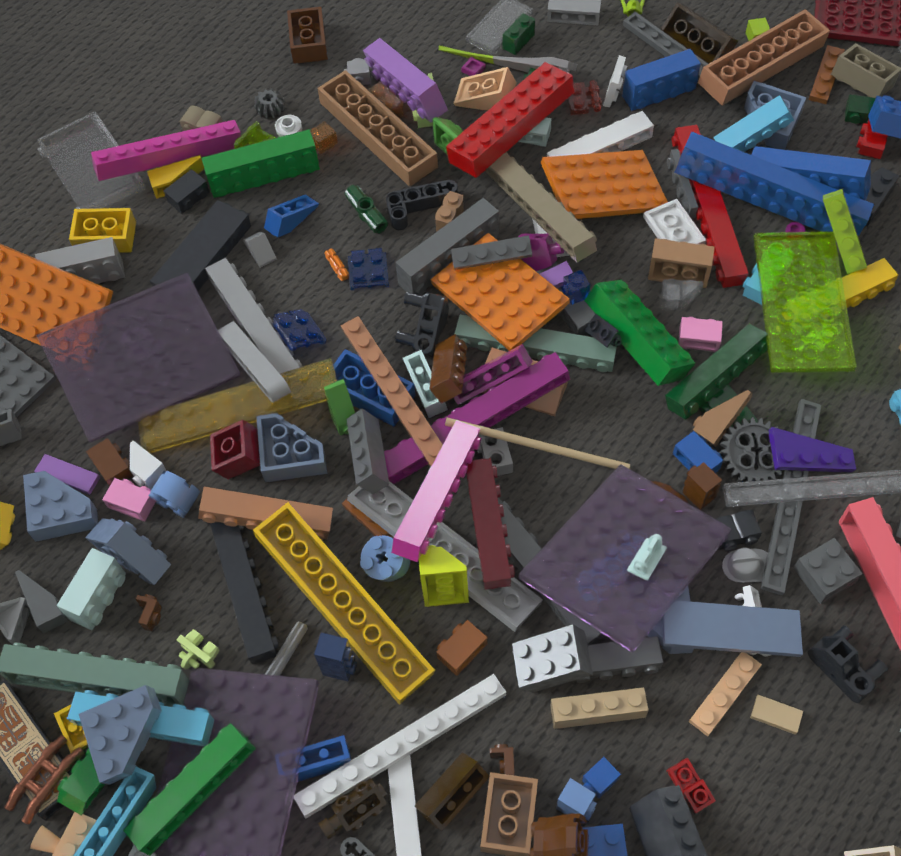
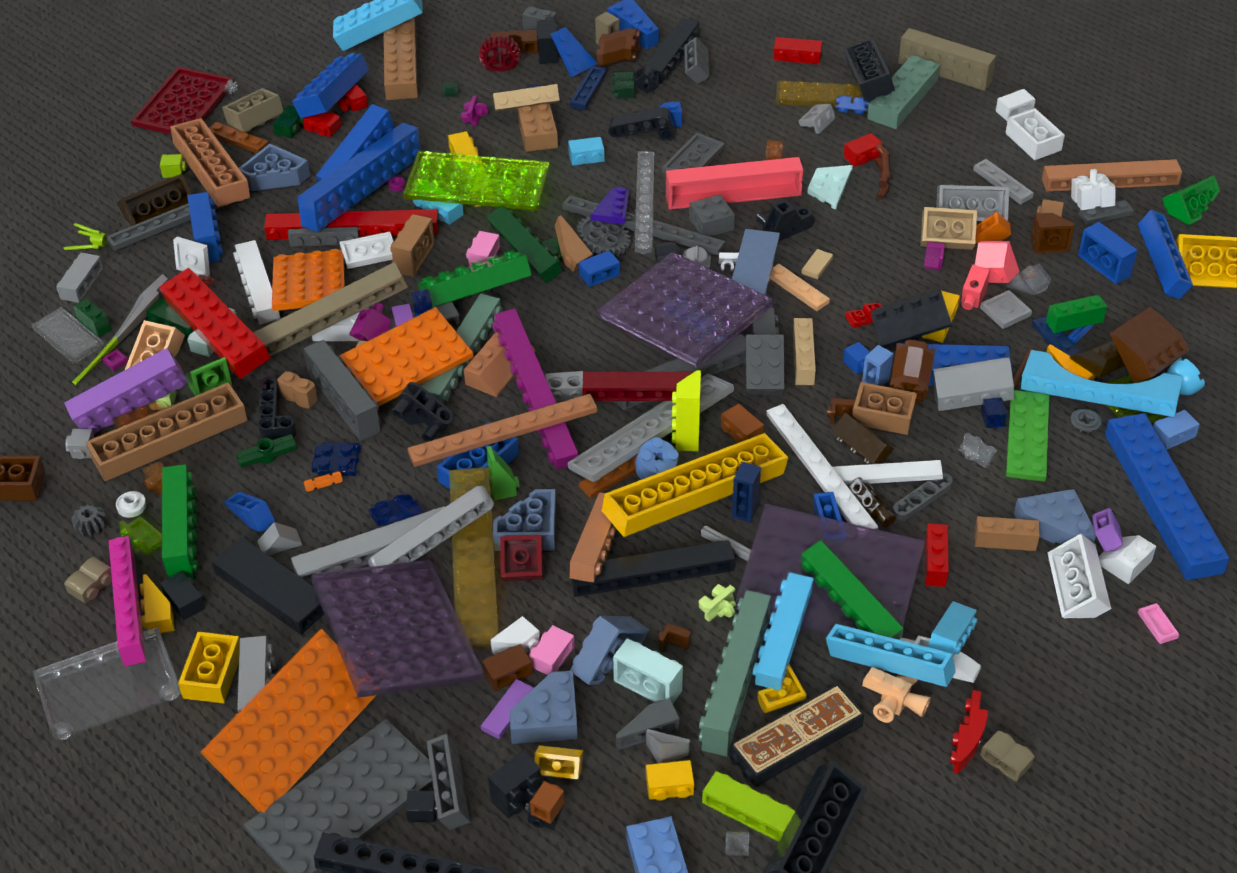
camera: 85 degrees left, 15 degrees down
(42, 792) = (835, 718): copper piece -> none
(81, 787) = (832, 669): green brick -> none
(120, 732) = (803, 627): sand blue brick -> none
(174, 493) = (557, 608): medium blue brick -> none
(367, 451) = (551, 457): dark grey brick -> none
(421, 376) = (478, 417): light aqua brick -> none
(436, 492) = (618, 388): brick -> none
(448, 368) = (481, 394): reddish brown brick -> none
(491, 252) = (369, 348): dark grey plate -> none
(494, 373) = (496, 368): magenta brick -> none
(543, 446) = (568, 354): tan piece -> none
(603, 332) = (470, 297): black hinge -> none
(647, 557) = (697, 286): light aqua hinge -> none
(679, 293) = (439, 256): clear slope -> none
(701, 485) = (629, 264): reddish brown brick -> none
(757, 126) = (291, 175): medium azure brick -> none
(844, 231) = (419, 139): lime brick -> none

